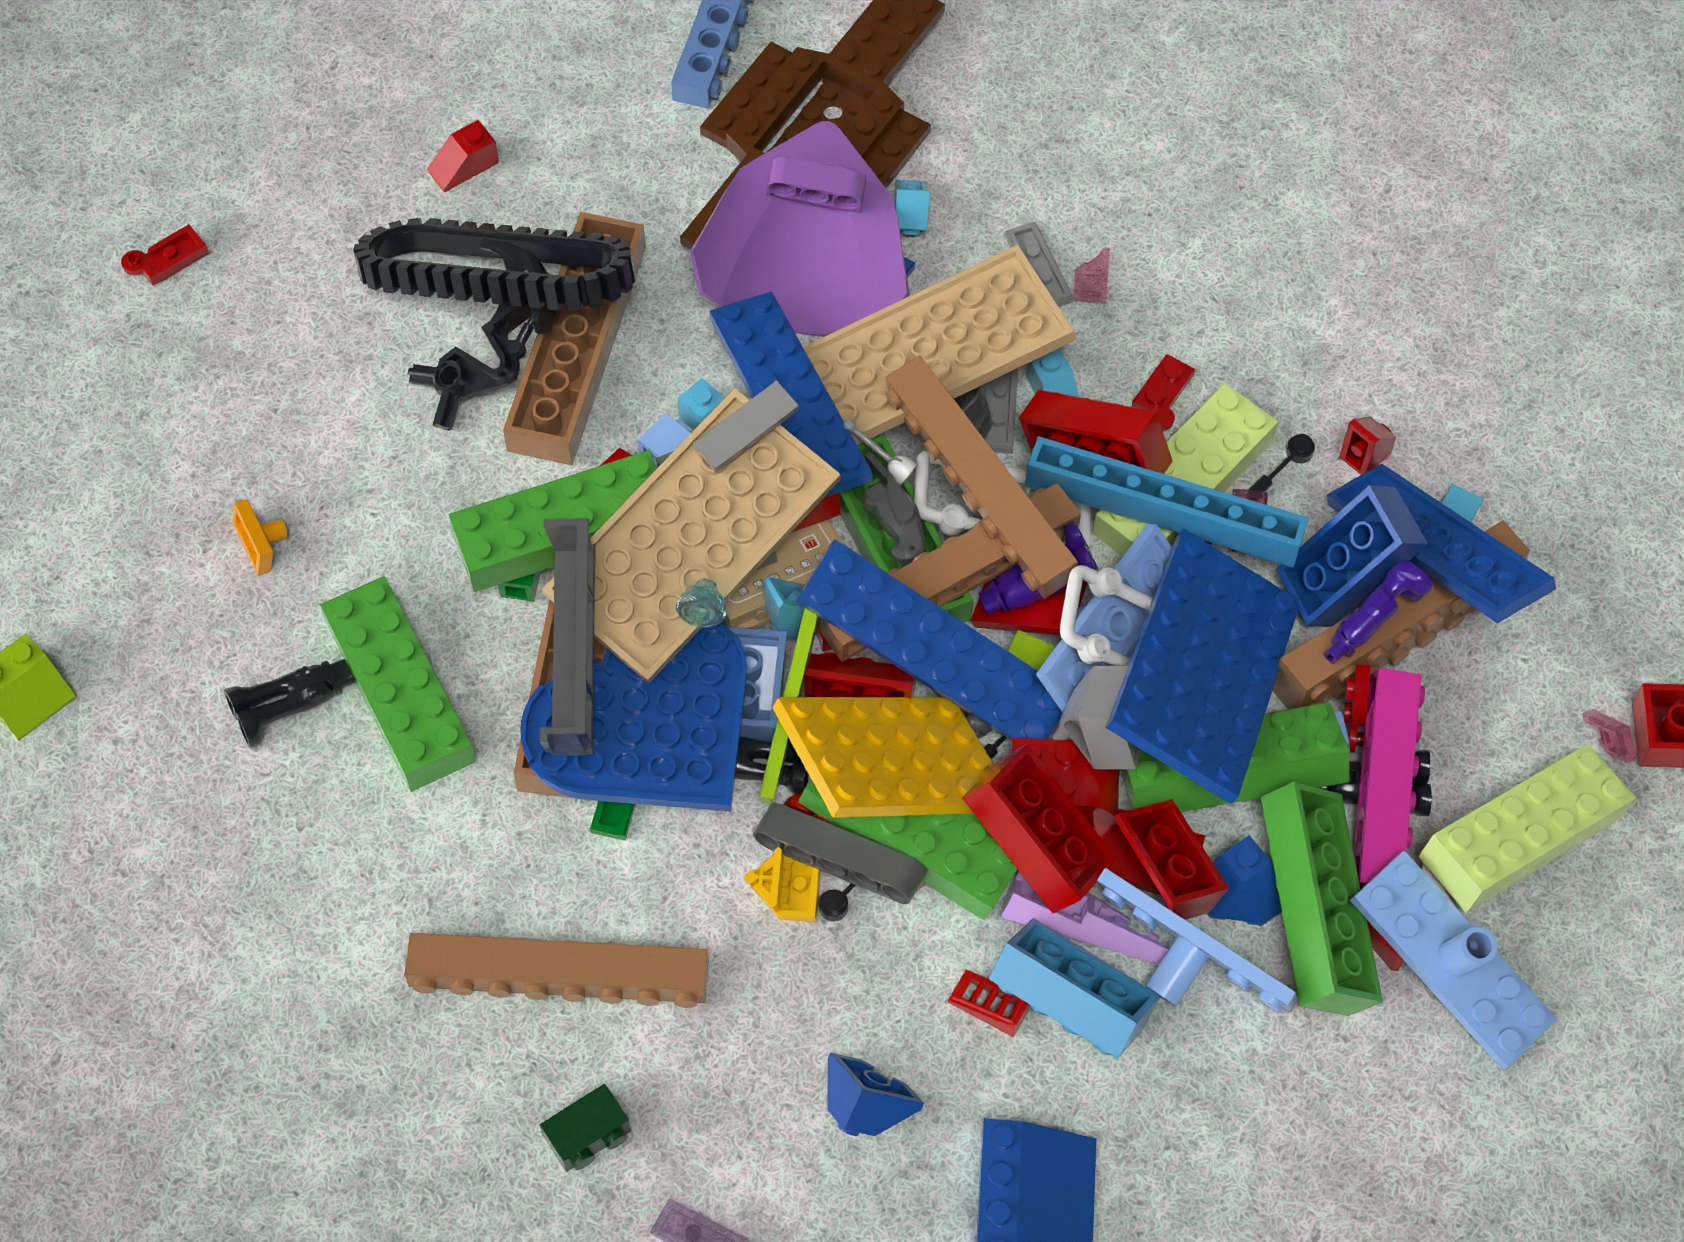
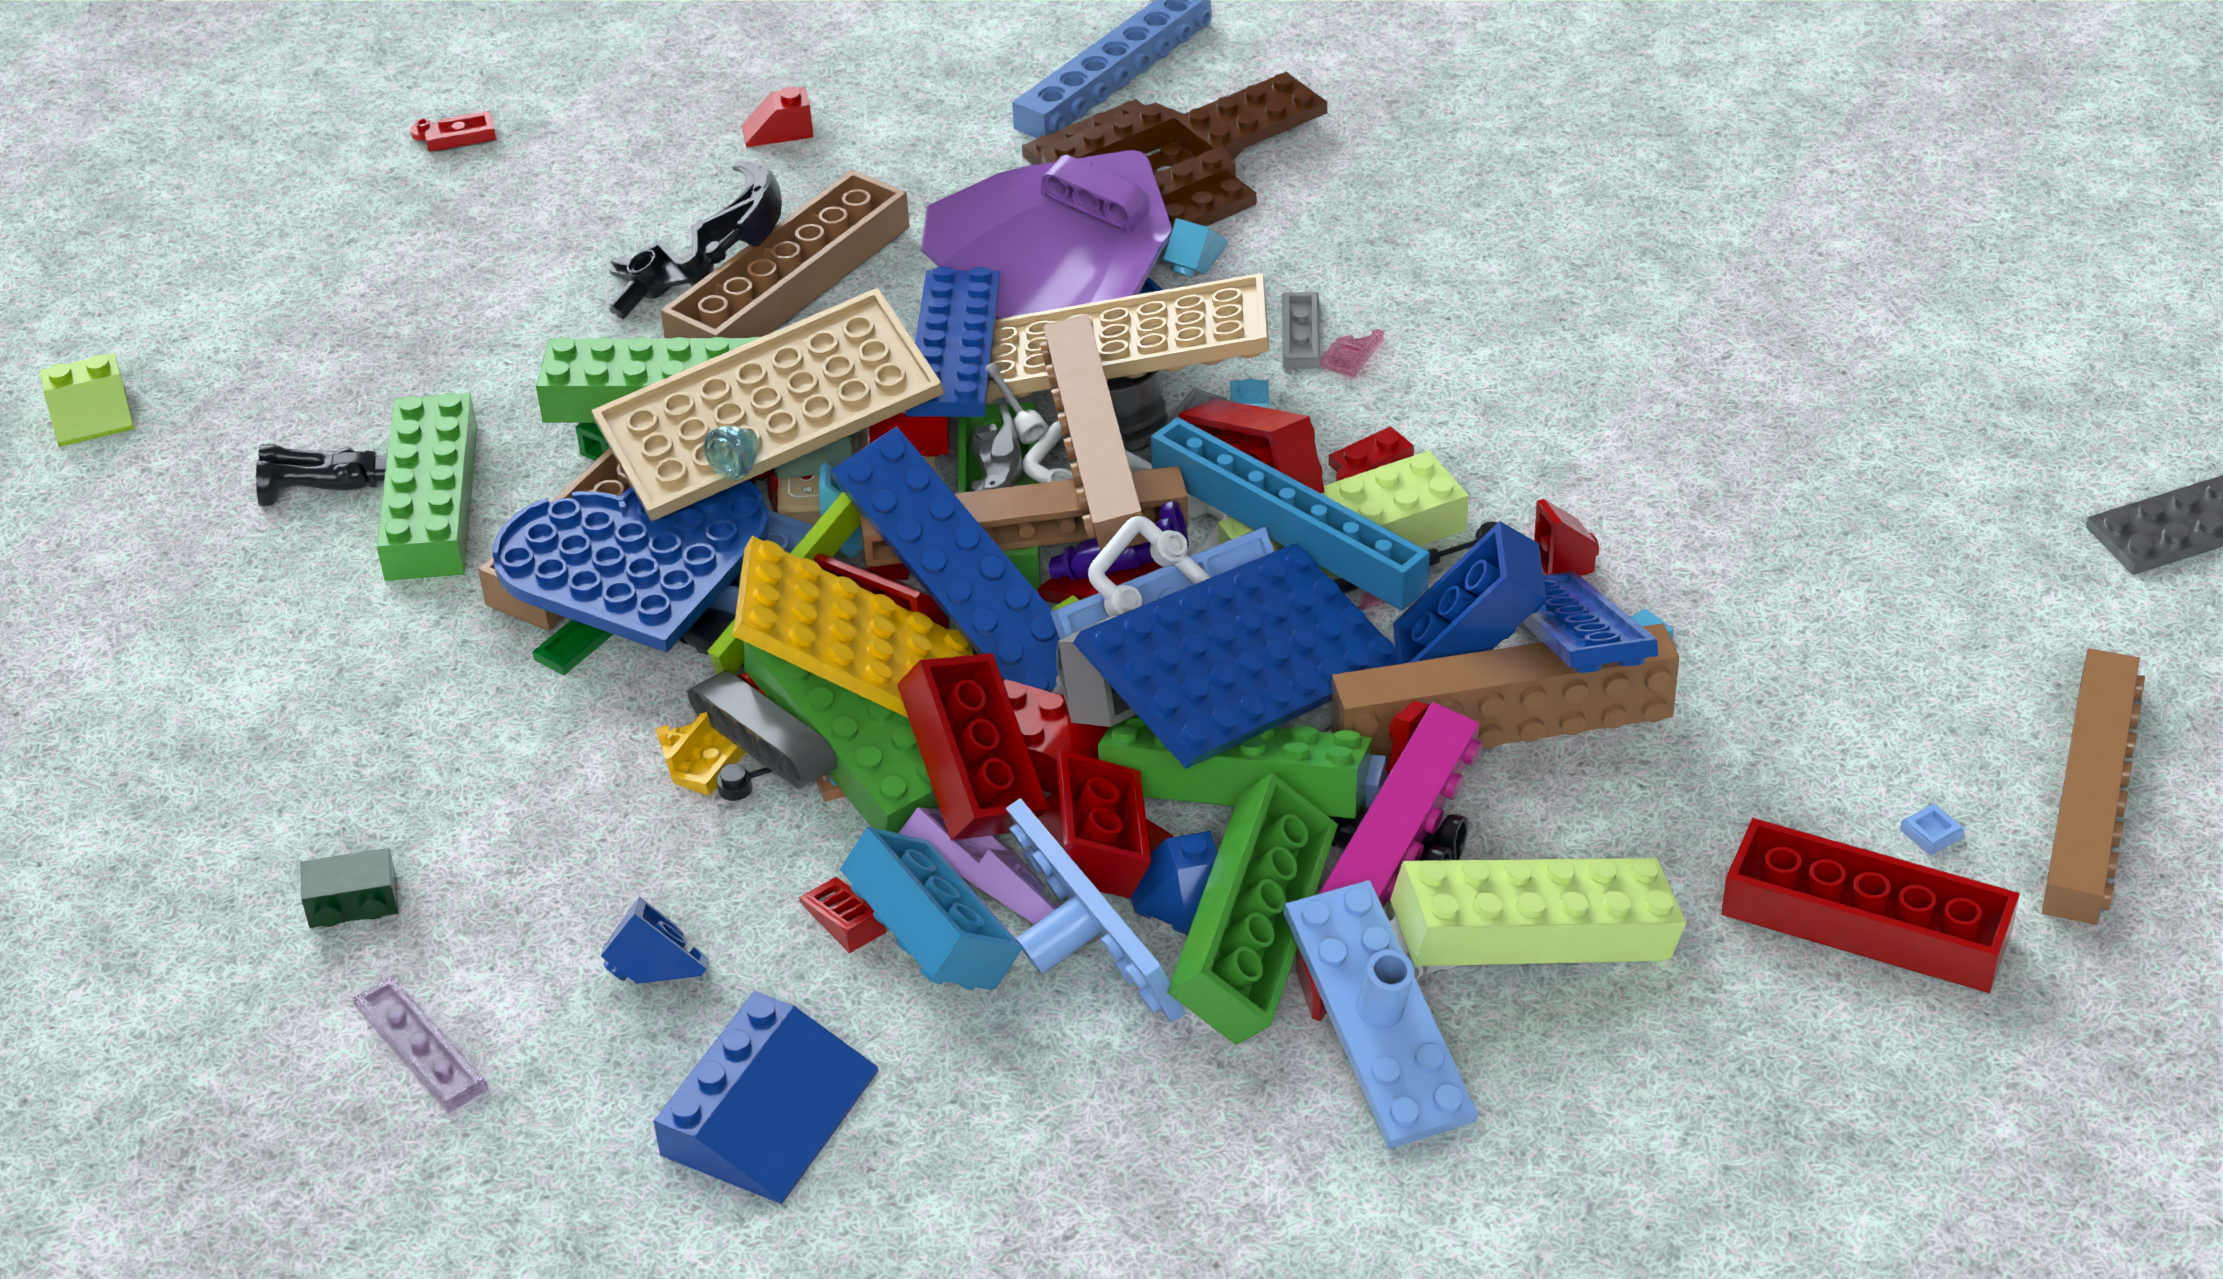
camera: 25 degrees right, 20 degrees down
(257, 536) = (384, 346): light orange tile -> none
(557, 968) = (420, 751): medium nougat brick -> none
(572, 639) = (548, 530): dark grey piece -> none
(607, 283) = (711, 177): black piece -> none
(746, 426) = (867, 318): light grey tile -> none
(1402, 580) = (1457, 647): dark purple piece -> none
(1615, 735) = (1700, 872): clear pink tile -> none

